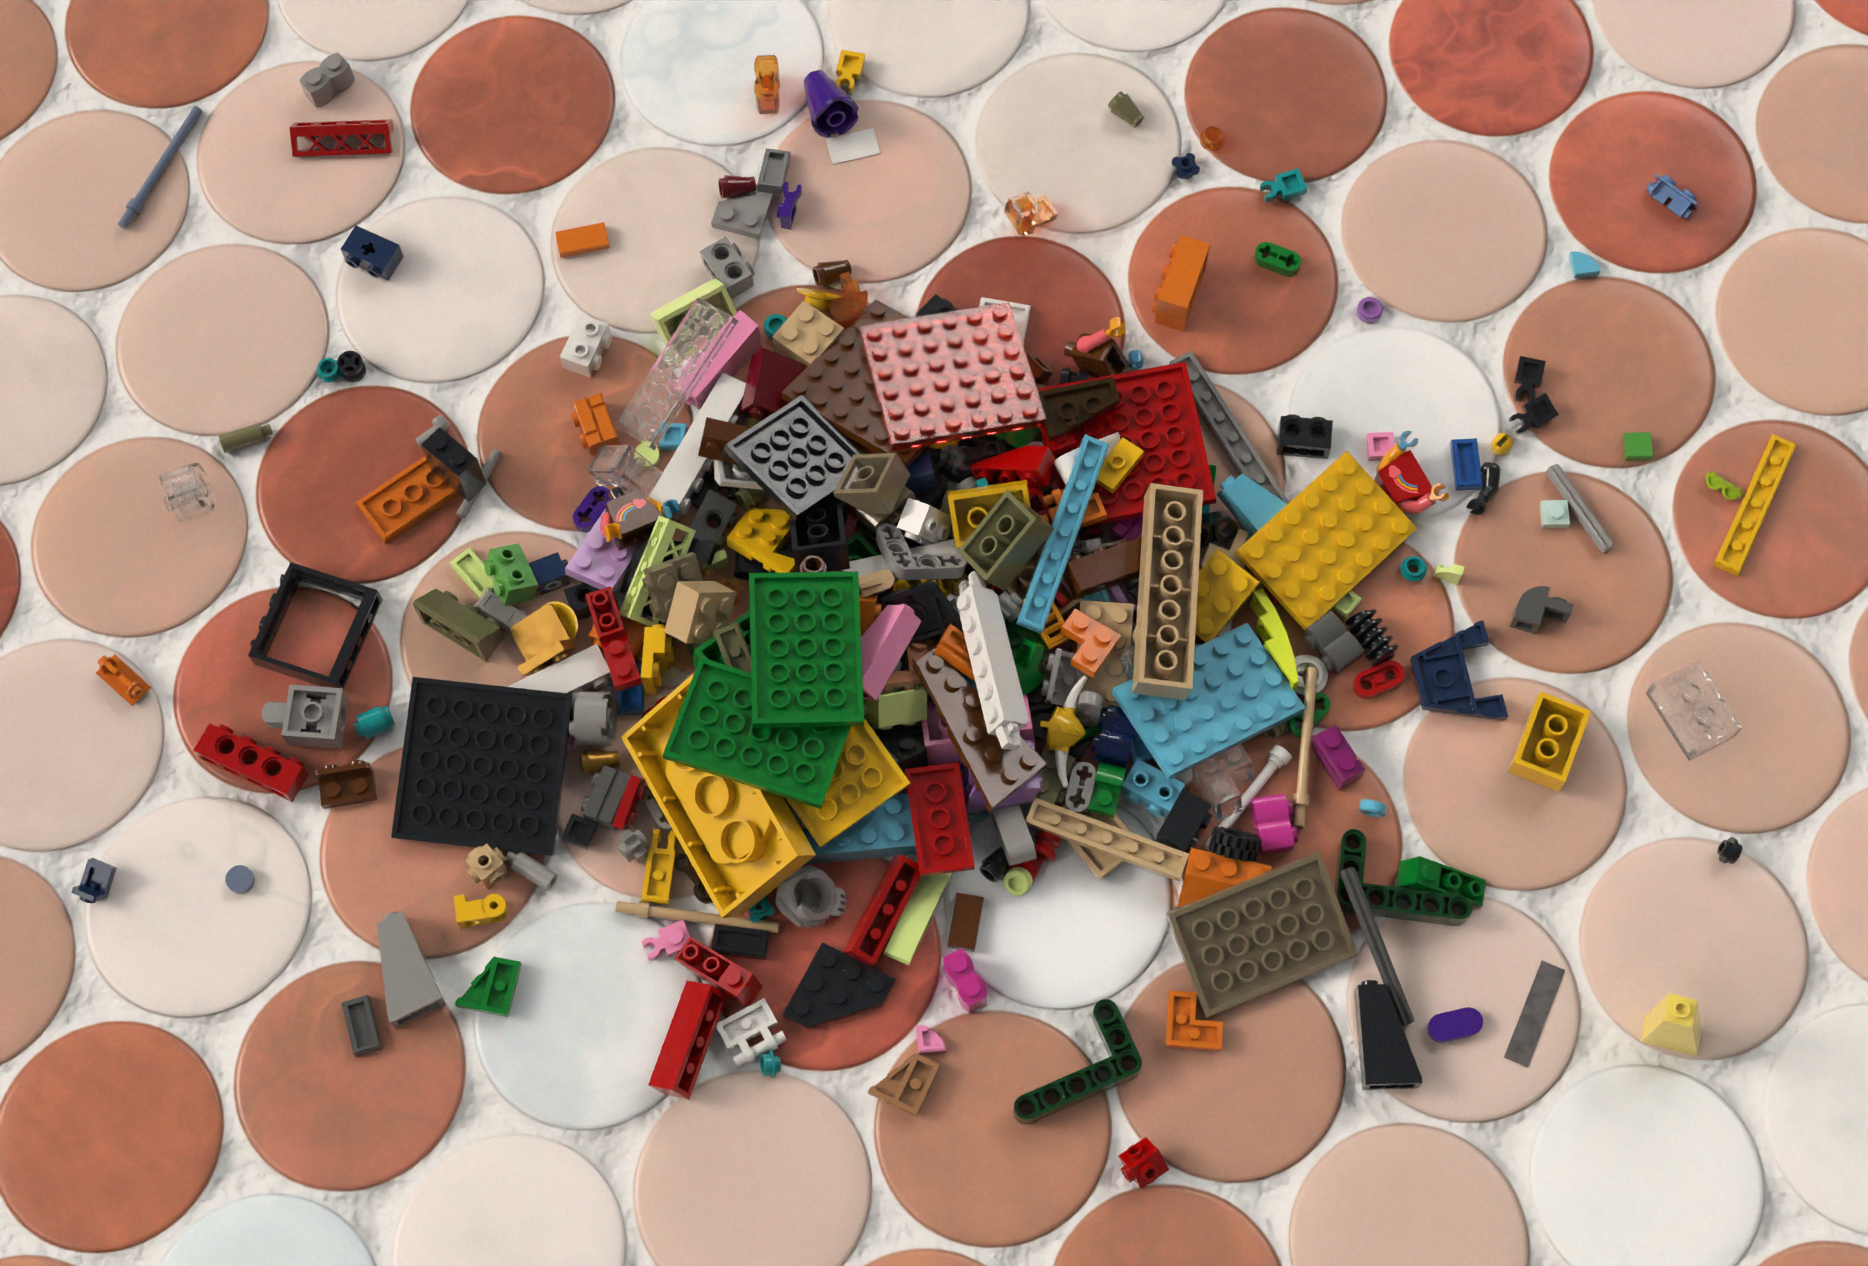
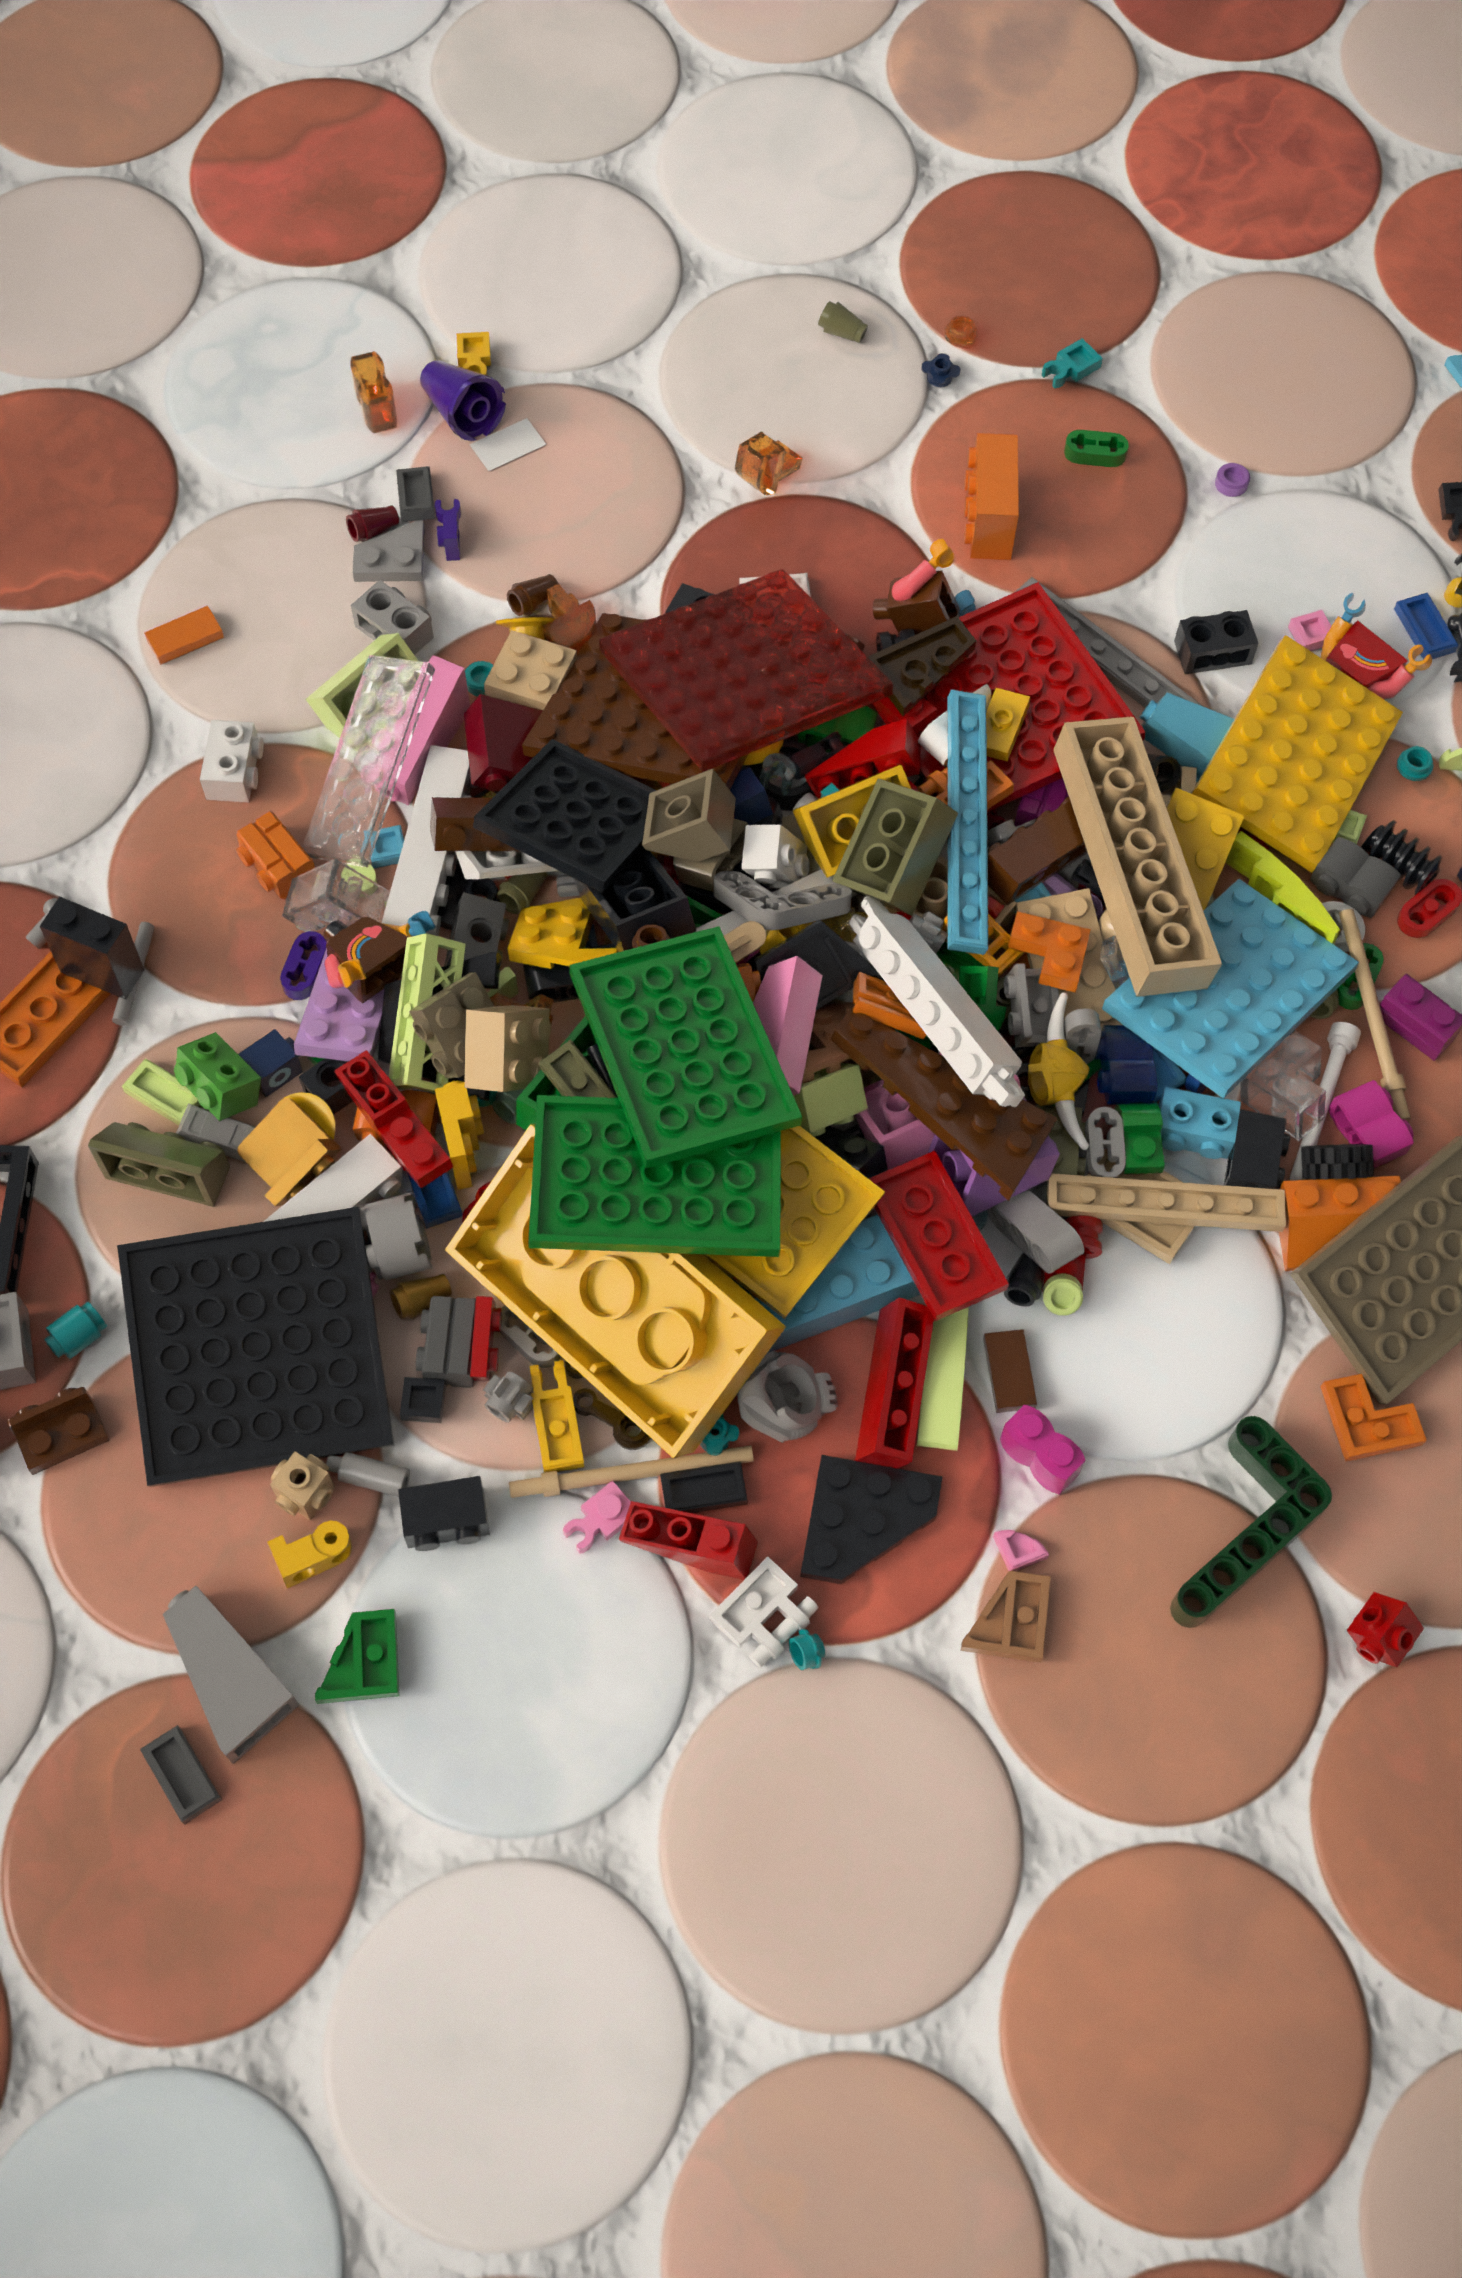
camera: 20 degrees left, 5 degrees down
(570, 910) = (444, 1513): none -> black brick
(687, 1039) = (678, 1649): red brick -> none

